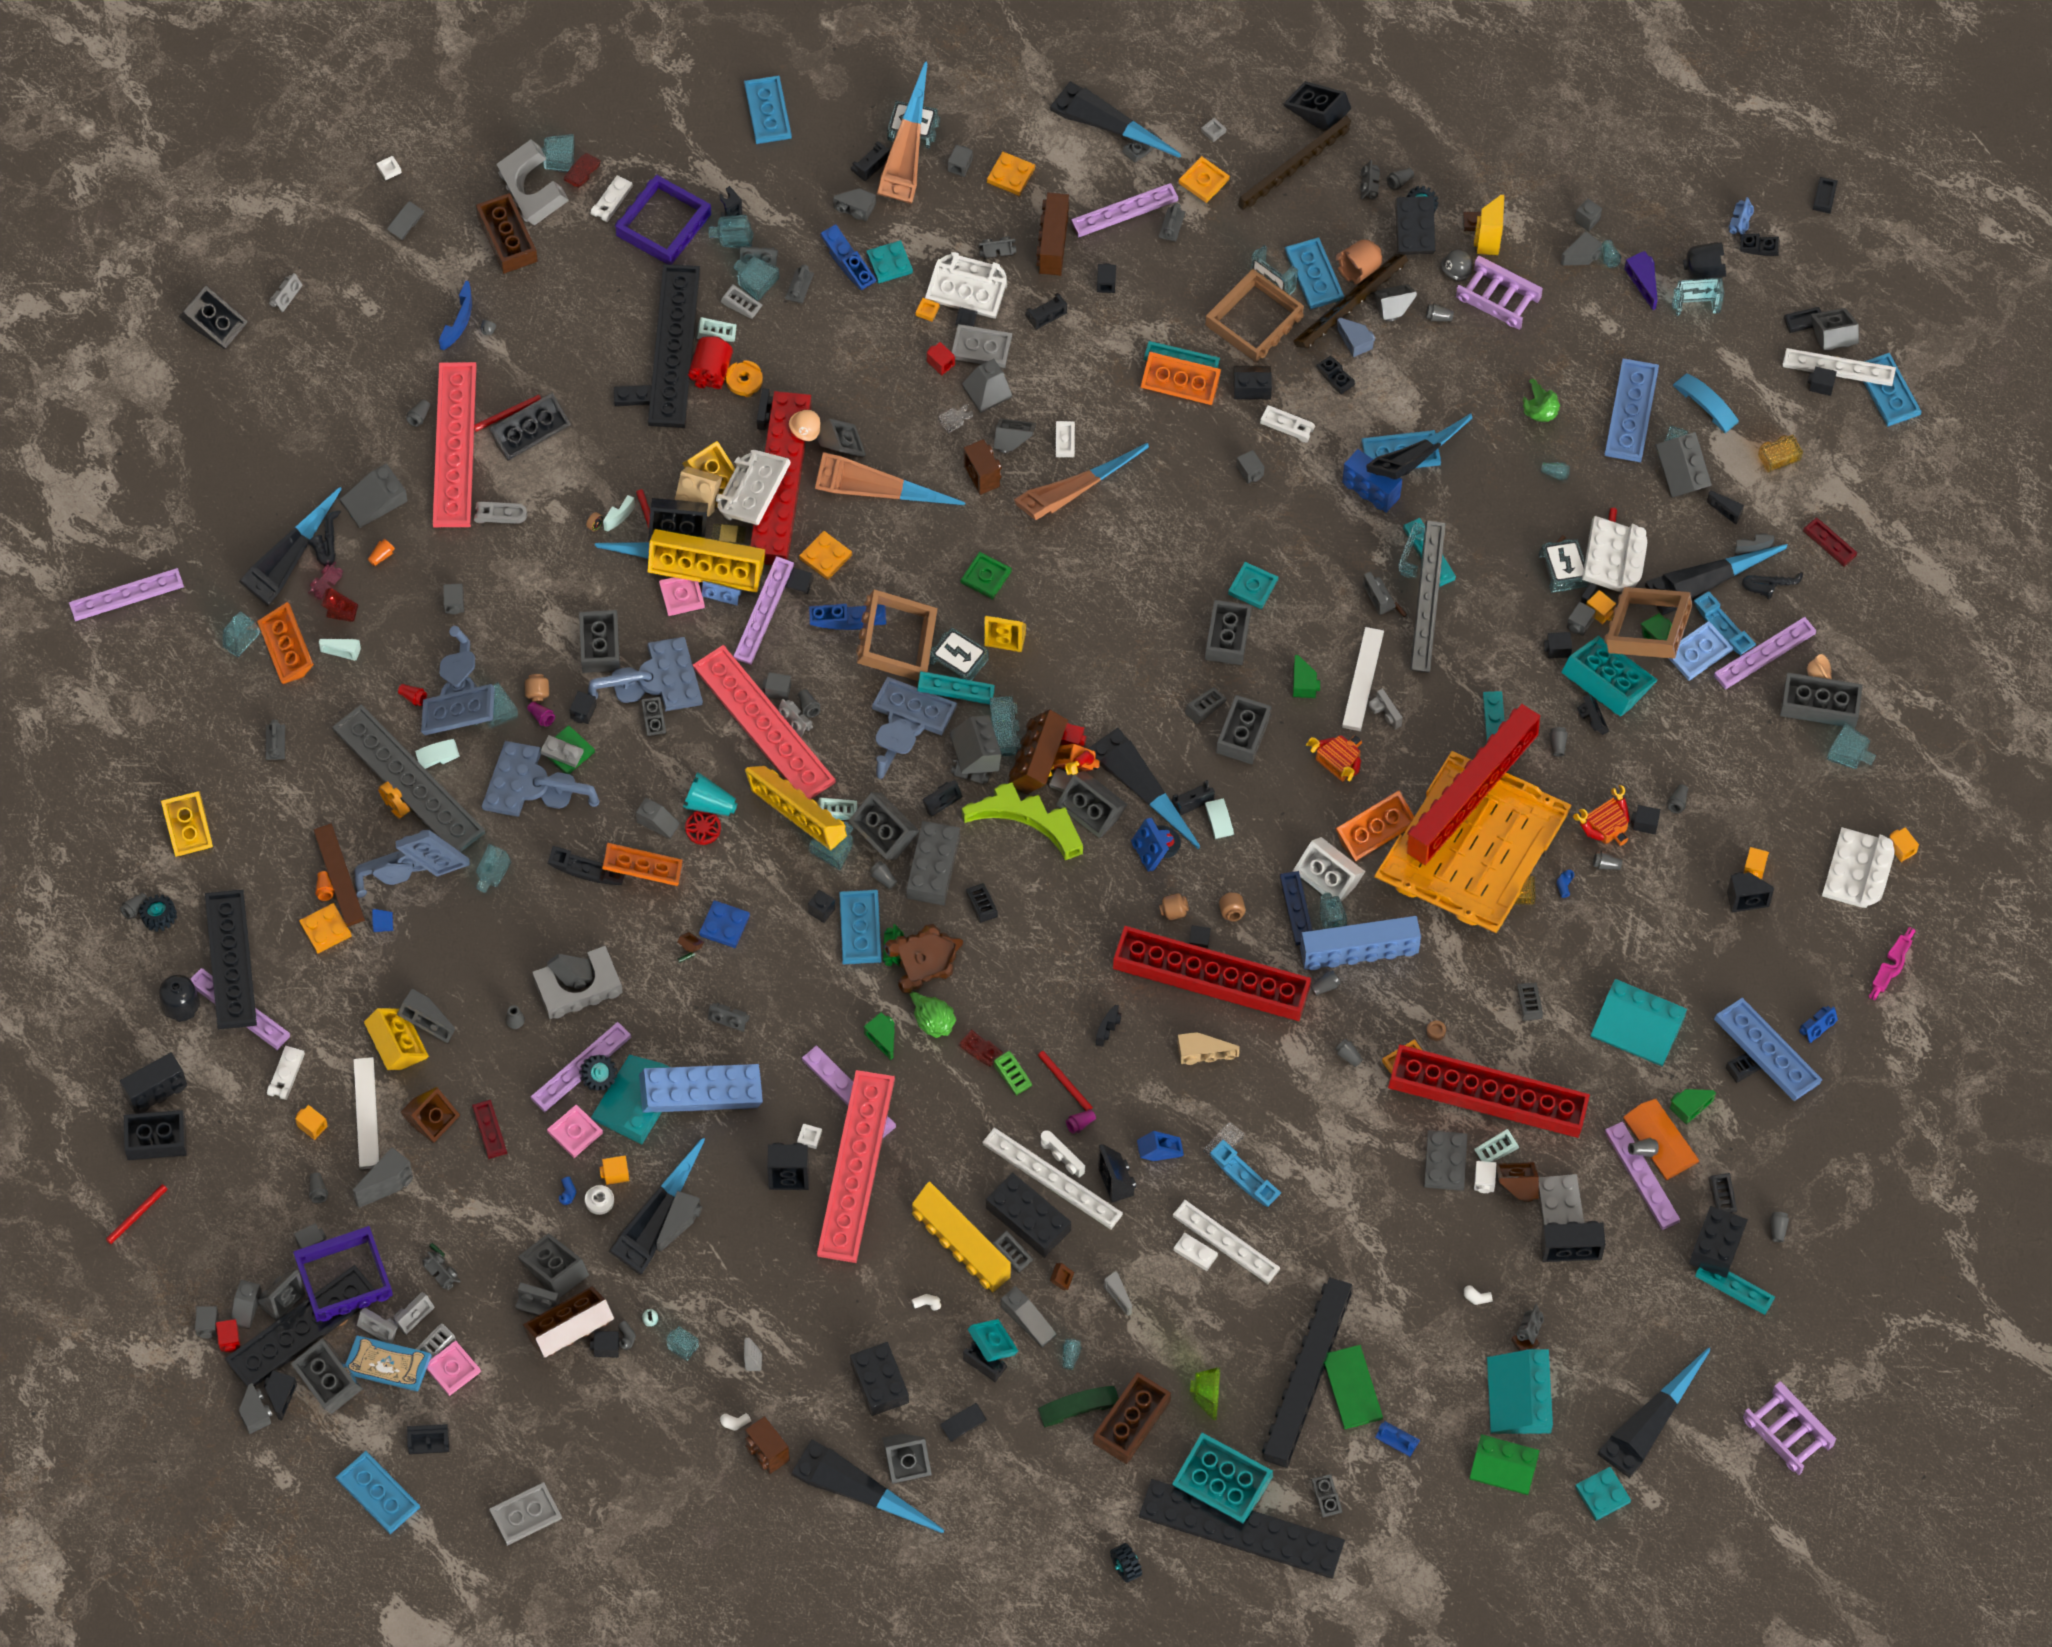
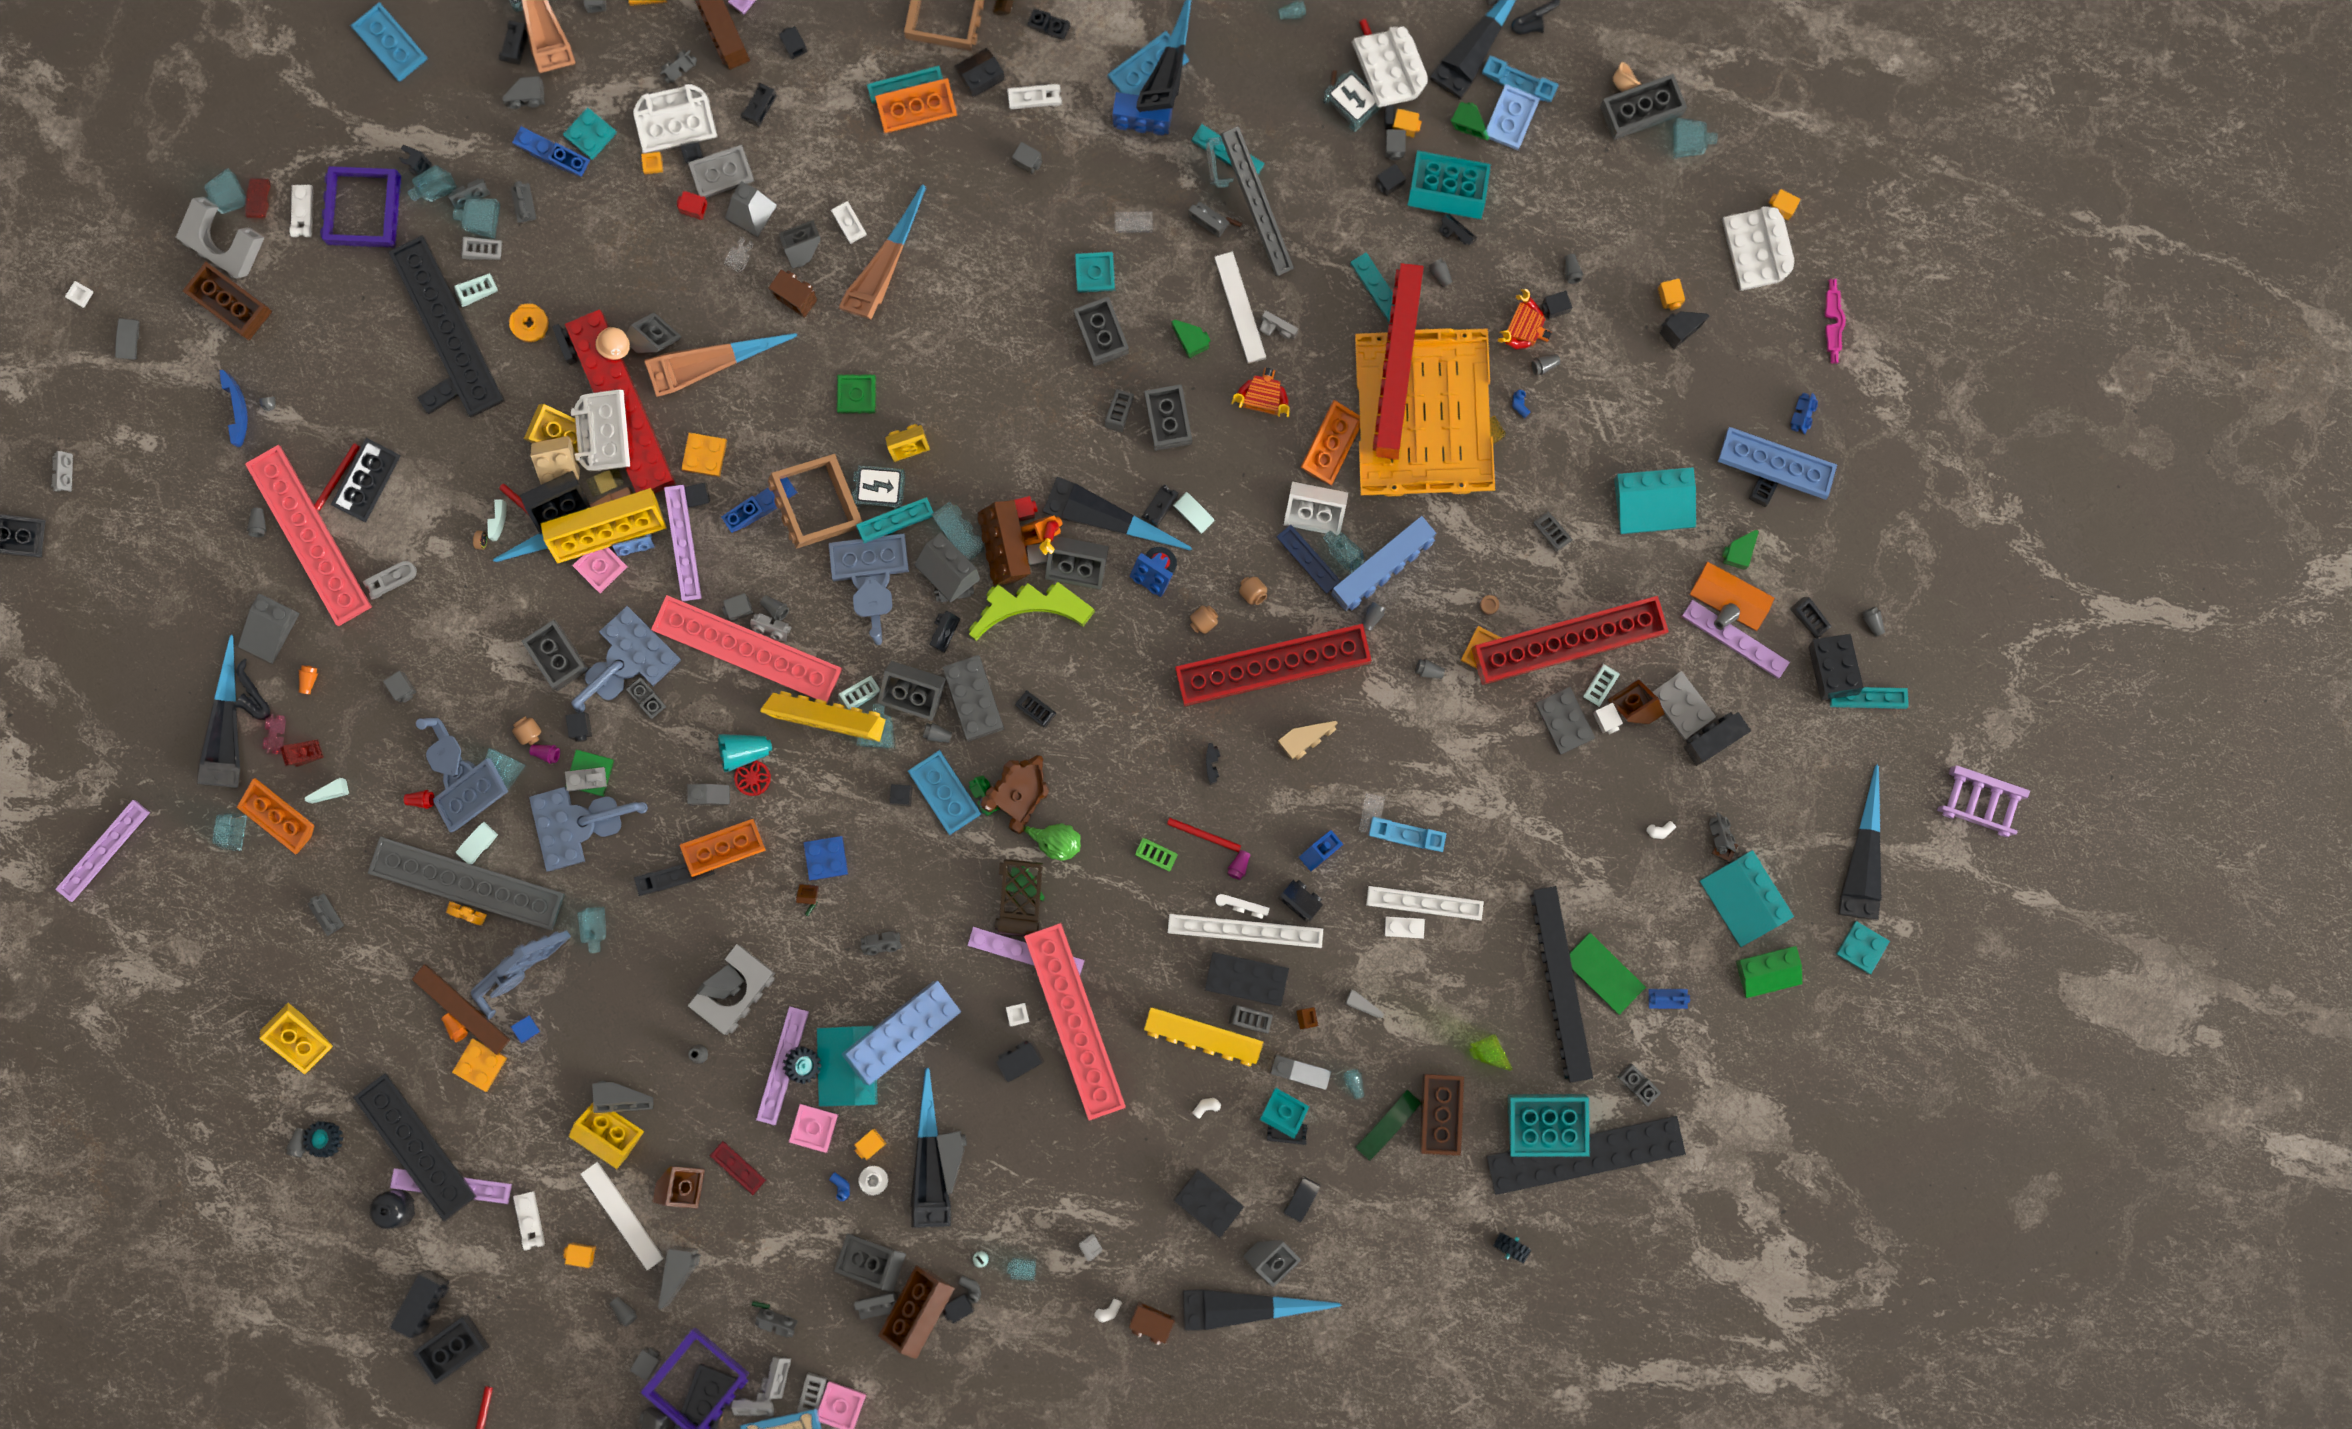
camera: 30 degrees left, 20 degrees up
(710, 362) = (490, 326): red cylinder -> none
(852, 1058) = (1014, 922): none -> dark brown piece
(980, 1049) = (1114, 847): clear red slope -> none
(1200, 936) = (1240, 633): black tile -> none
(1311, 564) = (1133, 222): none -> clear plate
(1649, 647) = (1469, 146): medium nougat window -> none
(1765, 653) = (1569, 87): lavender plate -> none

